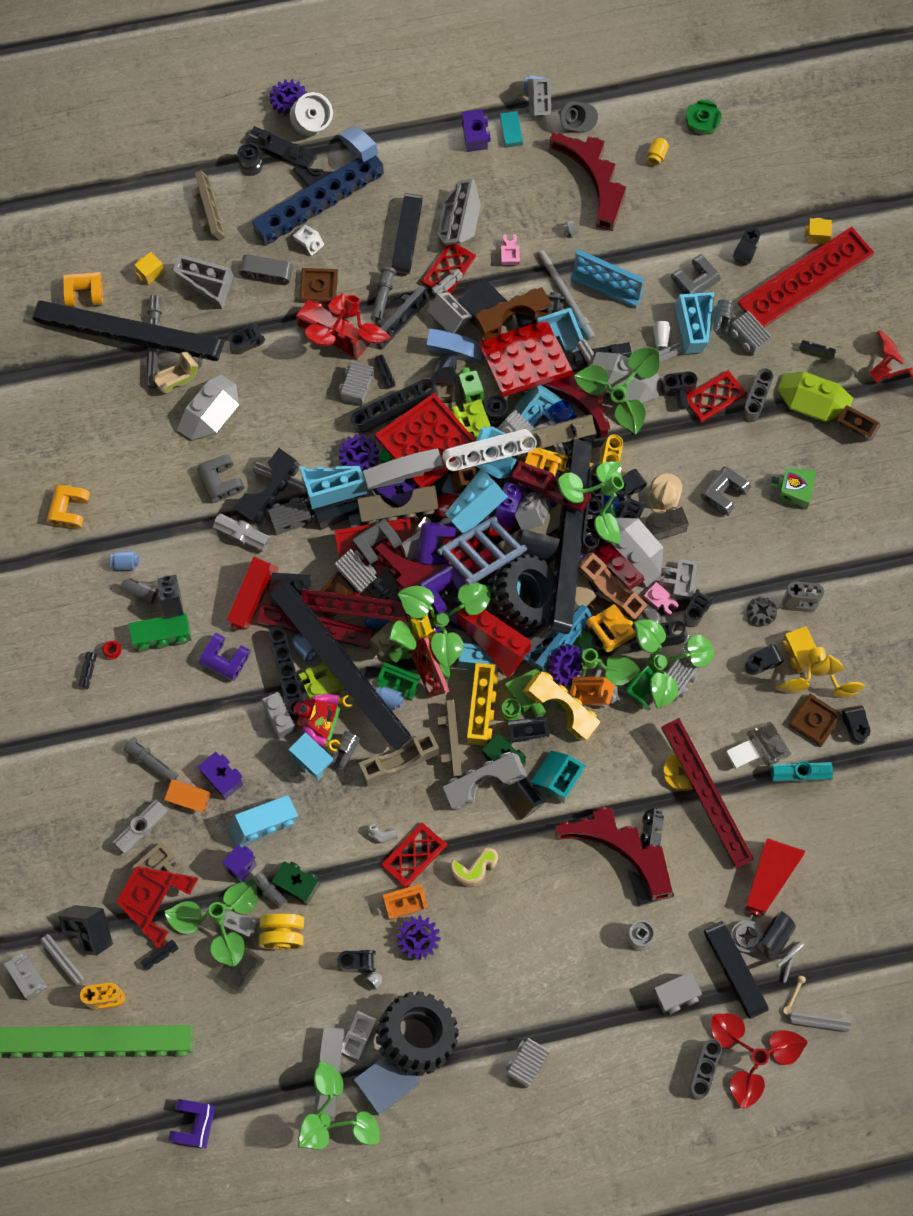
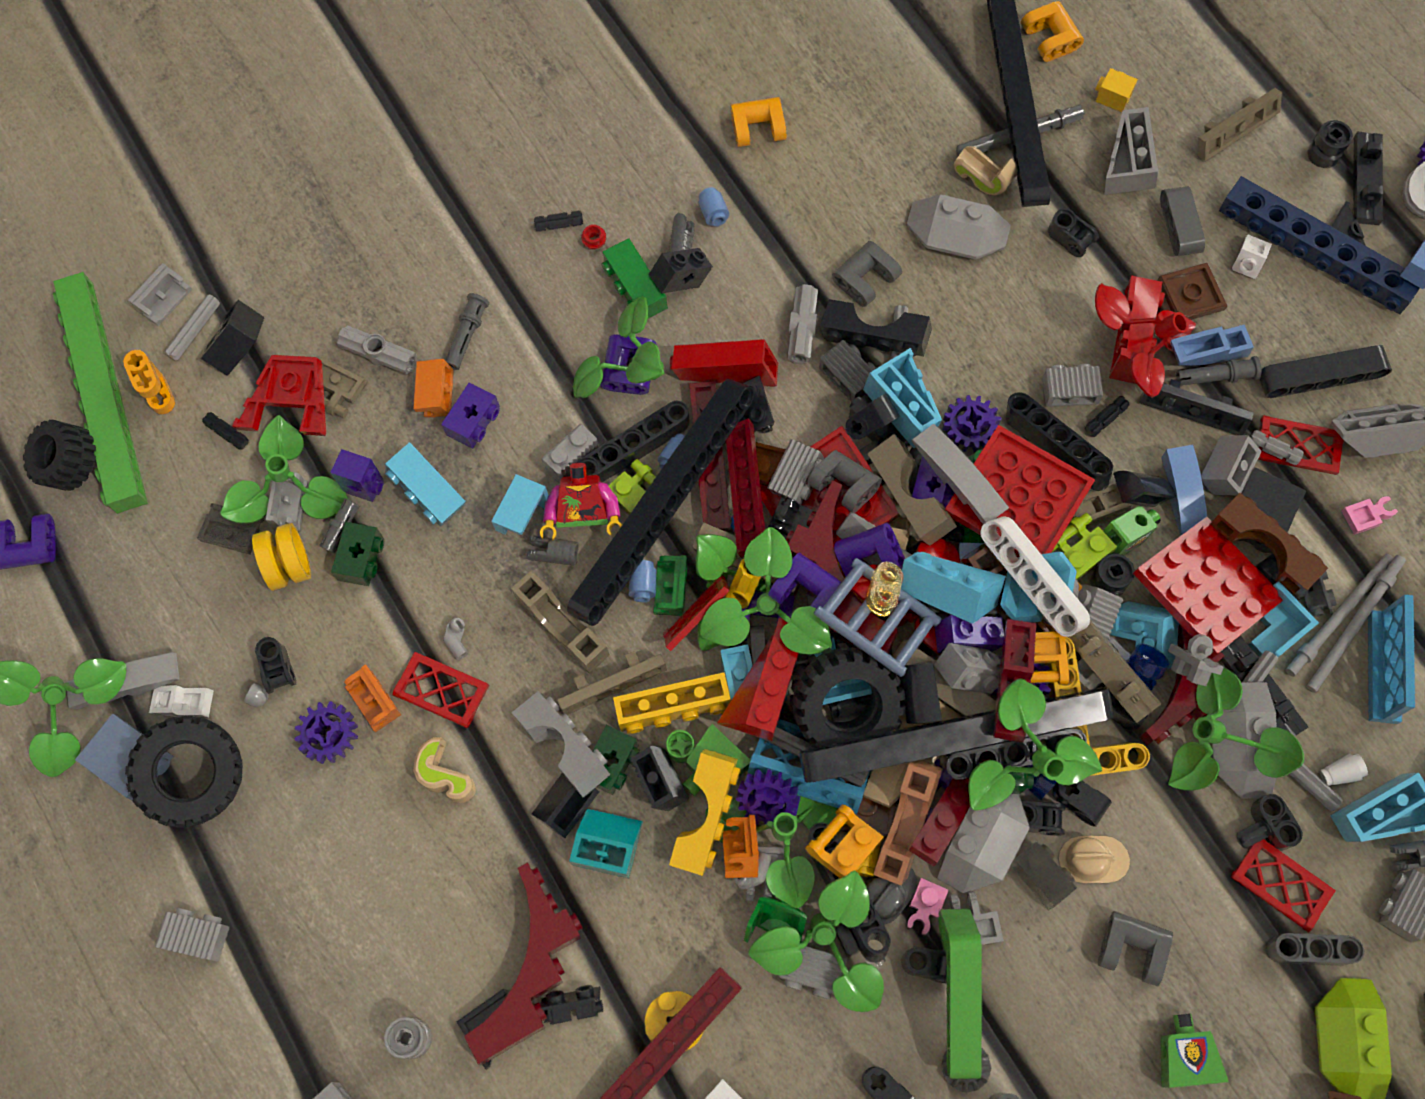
camera: 75 degrees right, 0 degrees up
(137, 1092) = (59, 455): none -> black tyre
(242, 637) = (644, 365): none -> bright green plant
(339, 508) = (873, 416): none -> black piece
(365, 286) = (1212, 346): none -> medium blue slope
(463, 539) = (884, 586): none -> clear yellow plate
(557, 261) = (1383, 582): none -> light grey bar
(569, 382) = (1195, 661): none -> light grey hips
(669, 650) = (847, 941): none -> black tile
(721, 588) = (963, 992): none -> bright green beam

